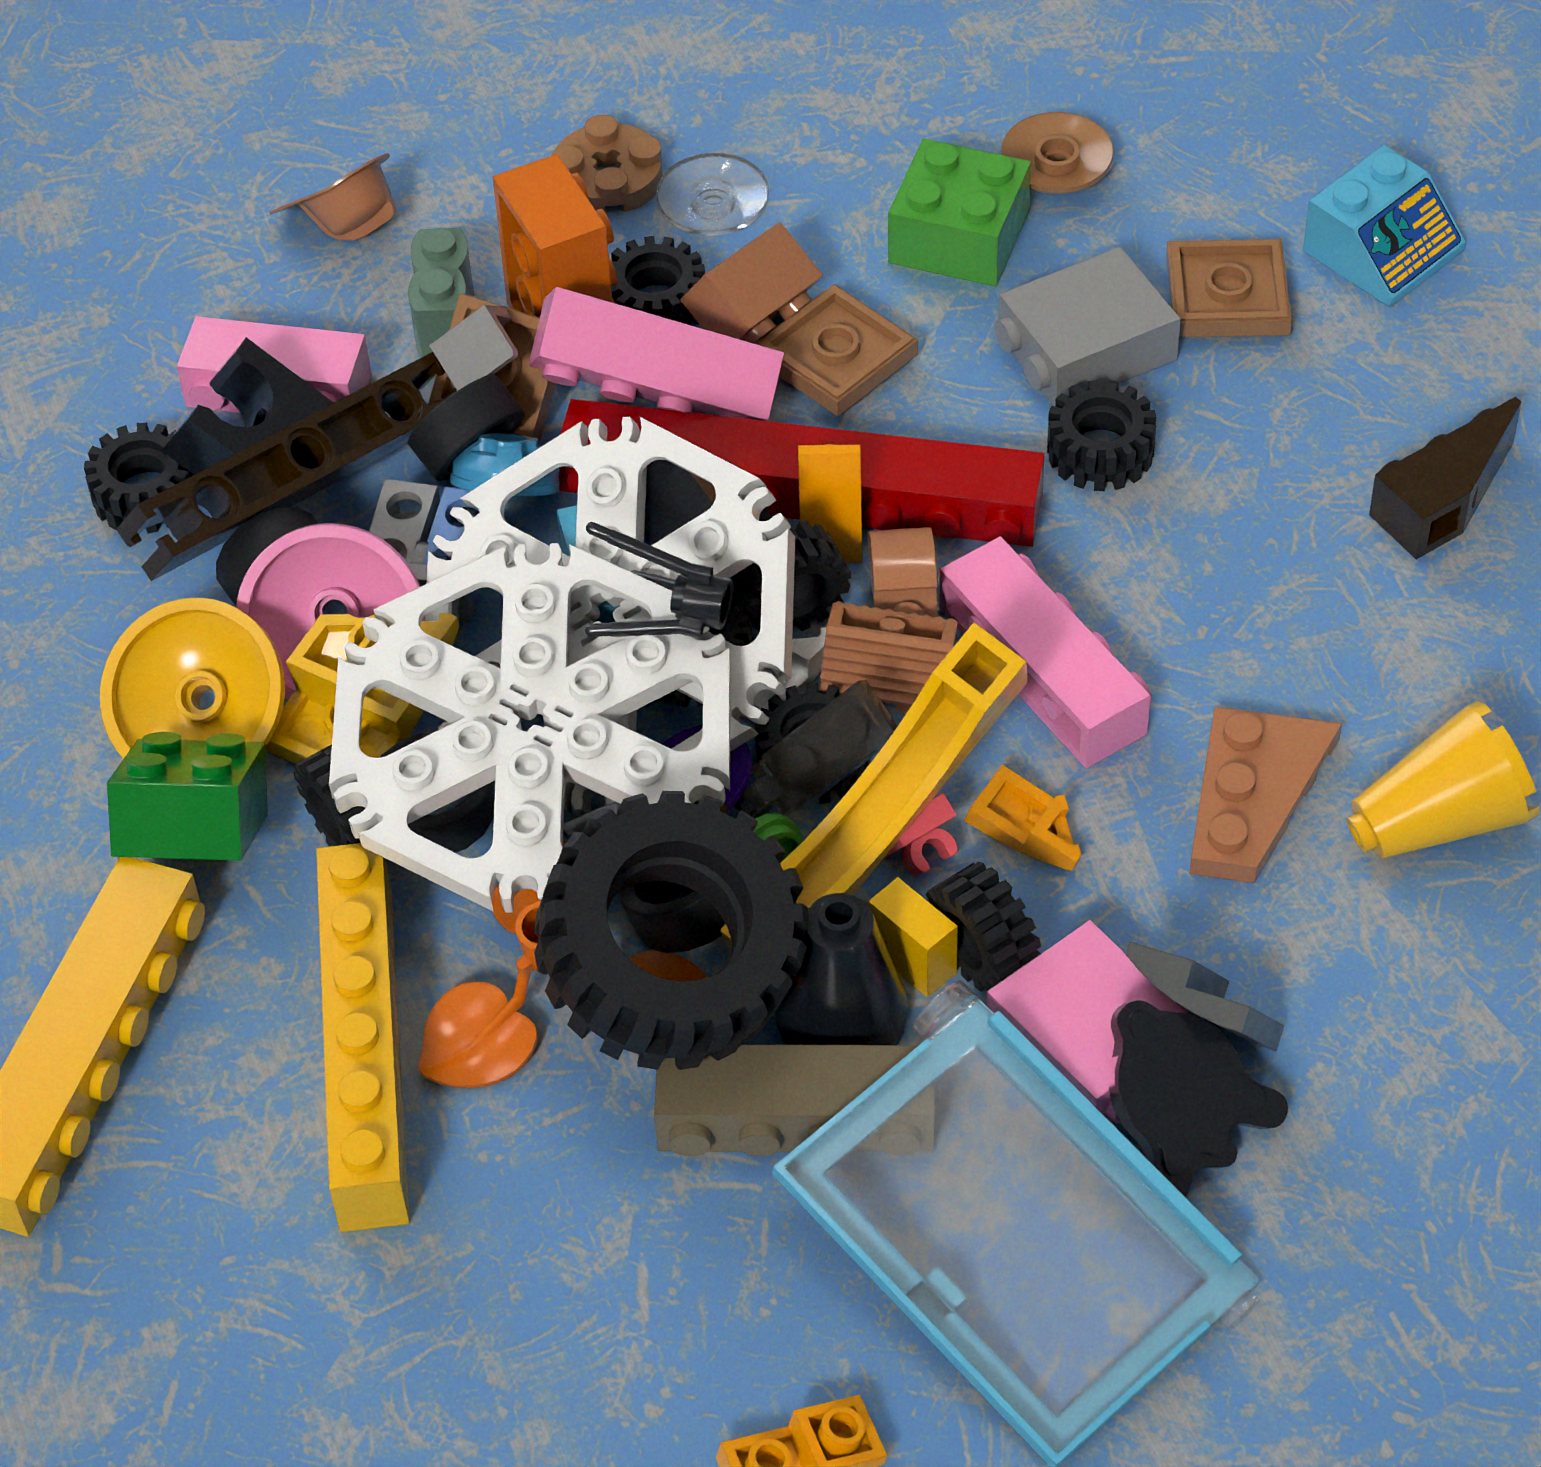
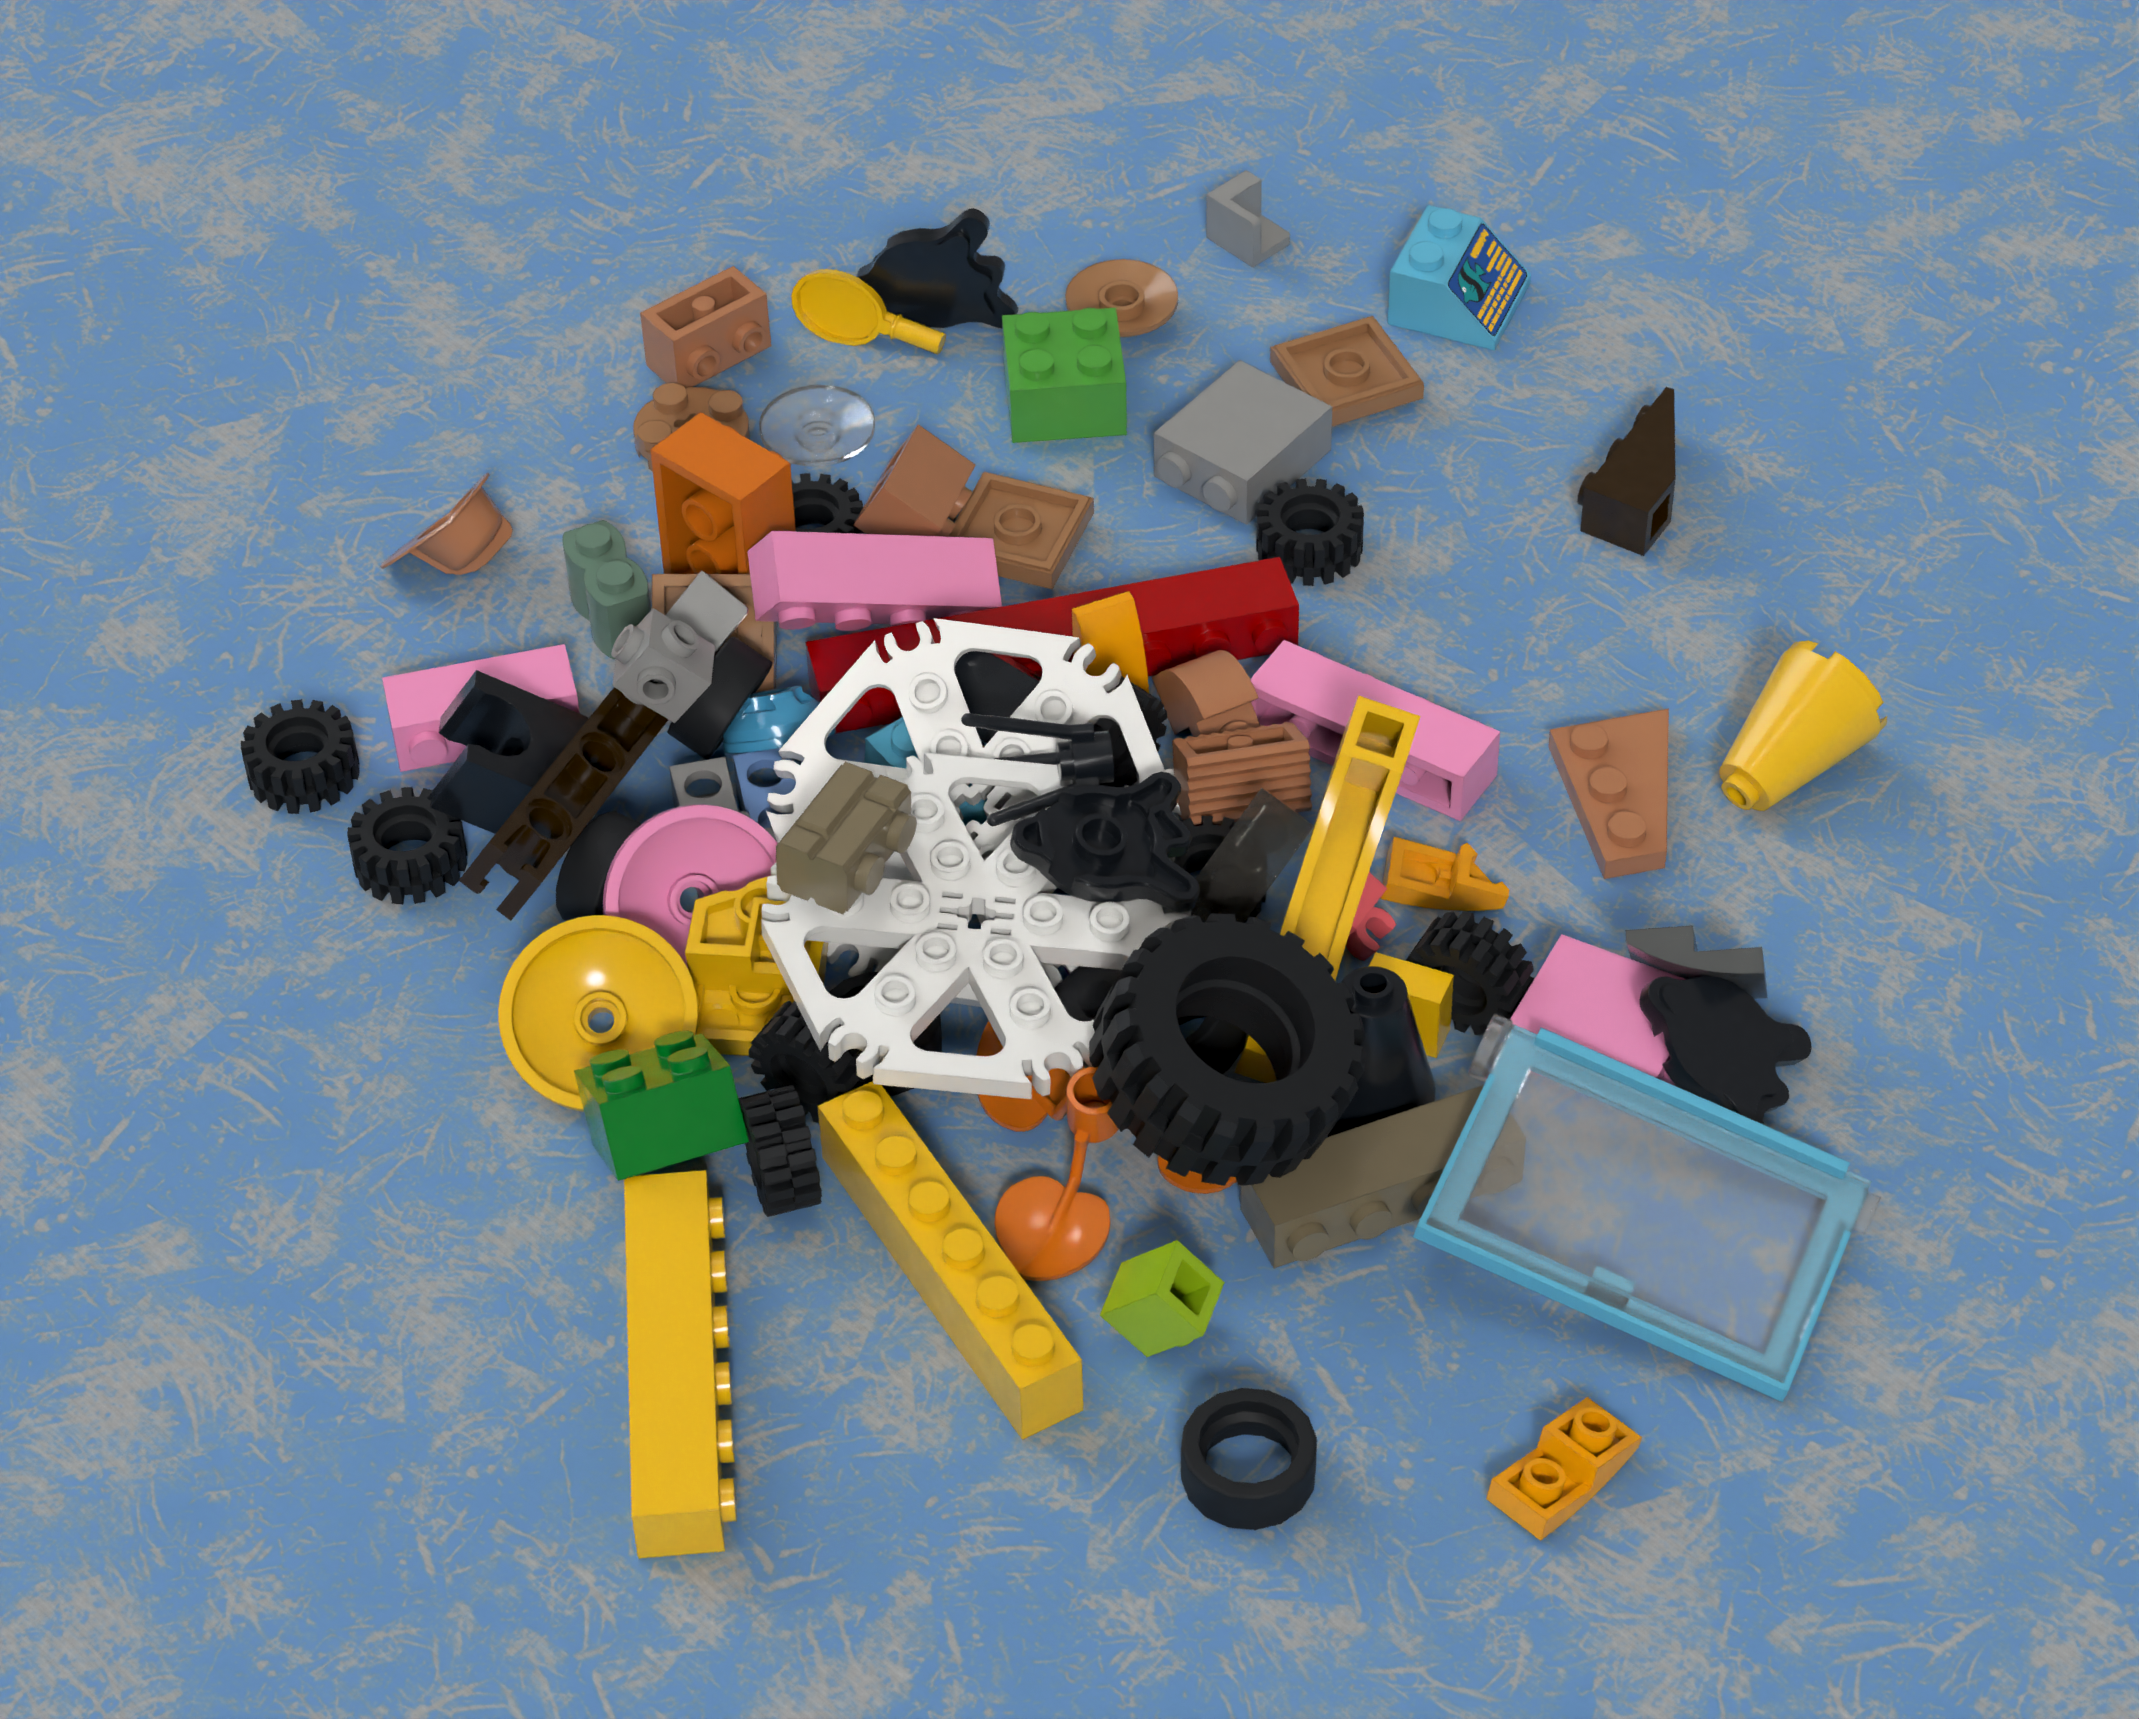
camera: 25 degrees left, 5 degrees down
(108, 388) = (306, 779): none -> black tyre
(267, 878) = (780, 1151): none -> black tyre
(401, 382) = (662, 664): none -> light grey brick
(436, 605) = (845, 838): none -> dark tan brick
(503, 1285) = (1243, 1503): none -> black tyre
(518, 1147) = (1162, 1299): none -> lime brick
(663, 73) = (706, 328): none -> nougat brick
(682, 689) = (1112, 844): none -> black tile
(806, 96) = (853, 313): none -> yellow piece
(891, 85) = (941, 276): none -> black tile
(1214, 109) = (1237, 222): none -> light grey panel

